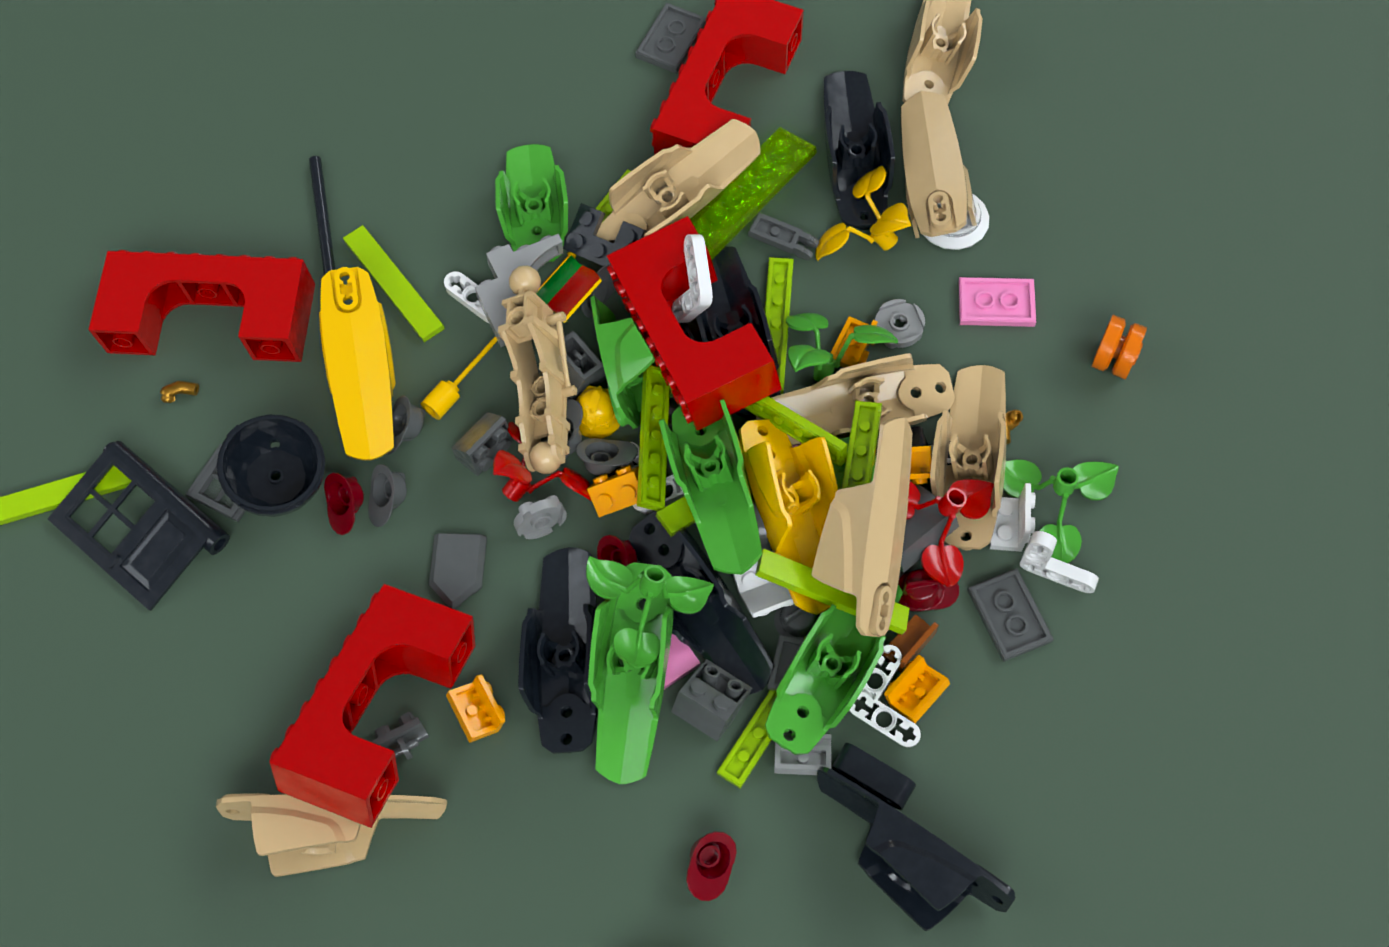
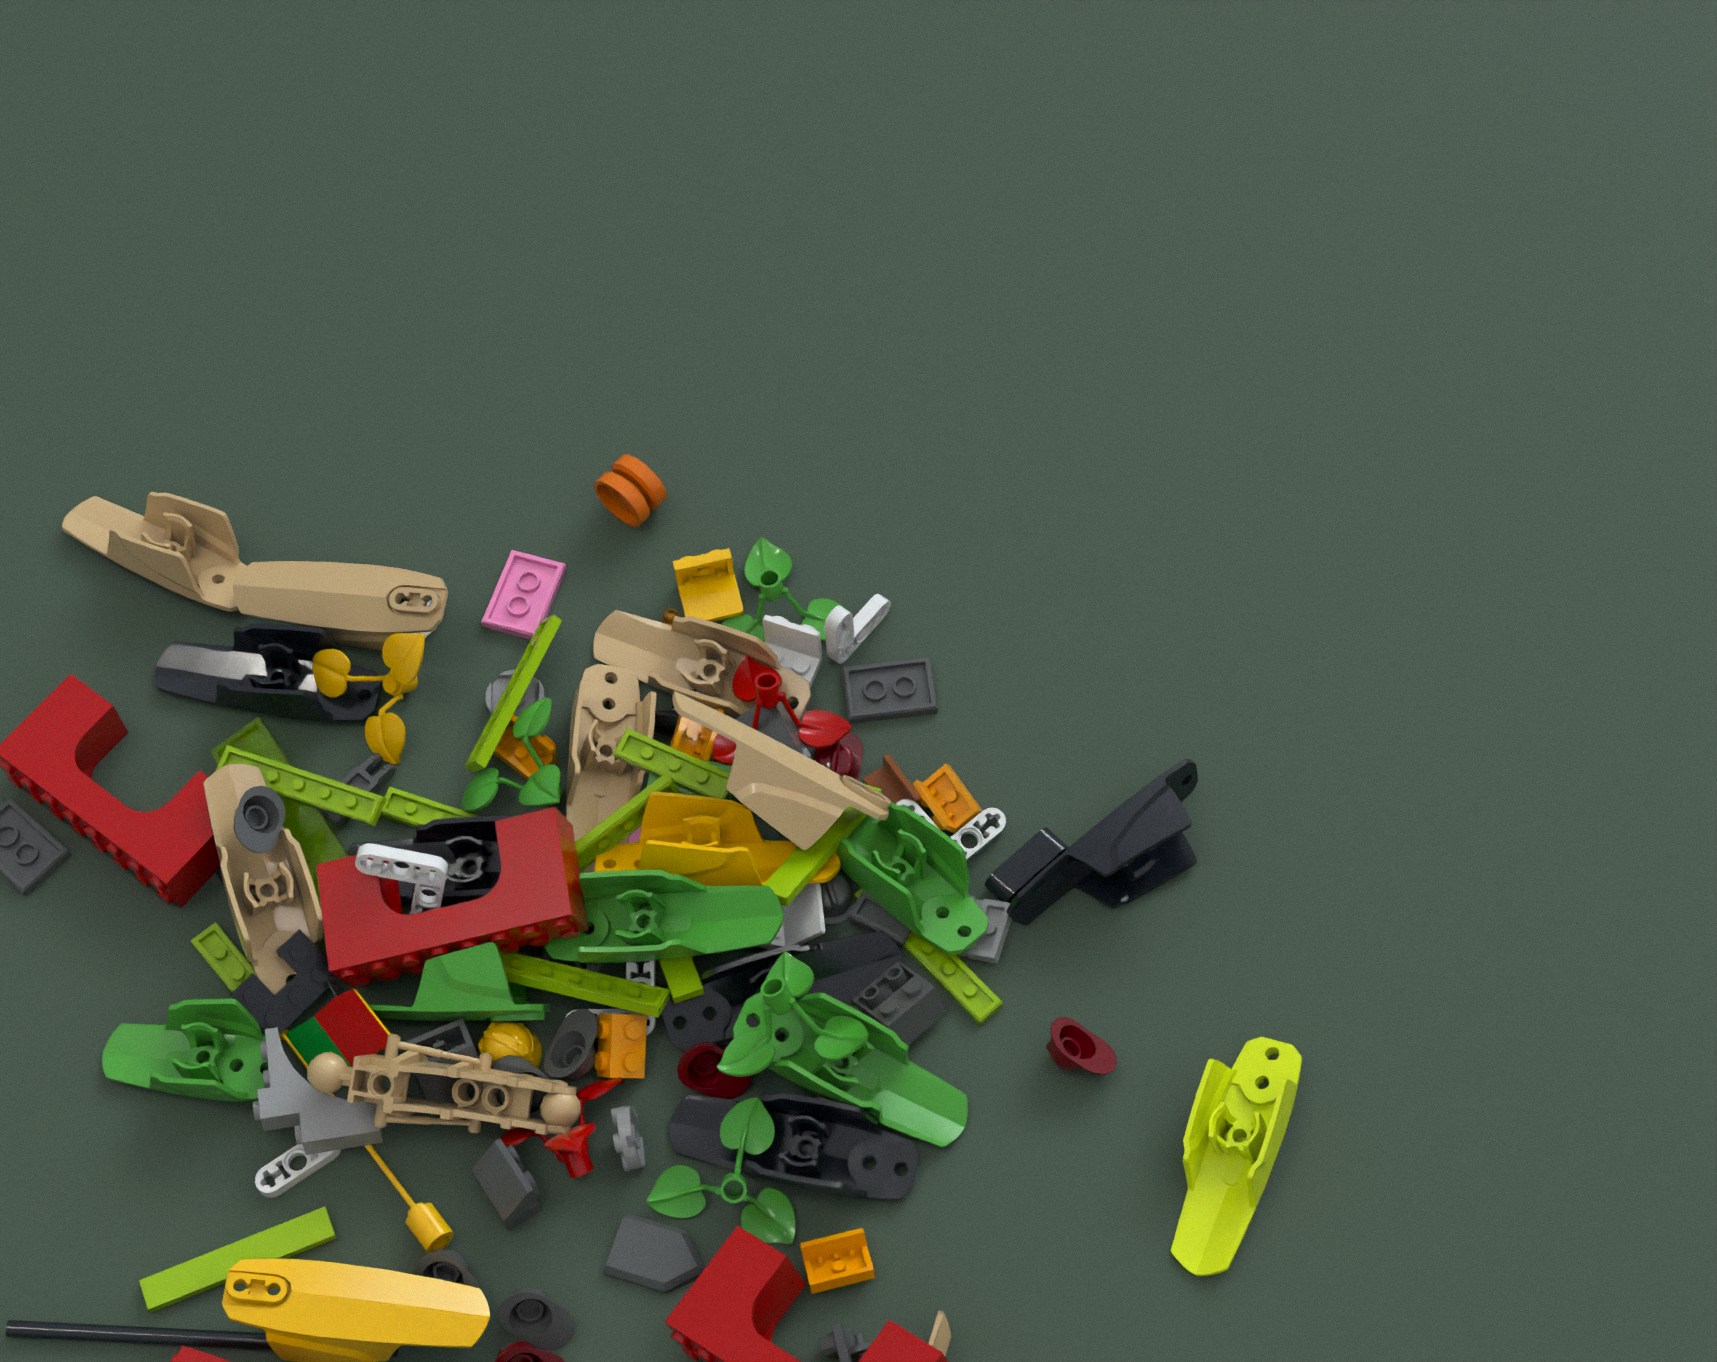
camera: 75 degrees left, 5 degrees down
(508, 570) = (767, 1216): none -> bright green plant
(711, 164) = (259, 819): none -> dark grey piece
(765, 194) = (311, 788): none -> lime tile
(897, 316) = (513, 694): none -> lime tile
(1053, 437) = (708, 586): none -> yellow bracket

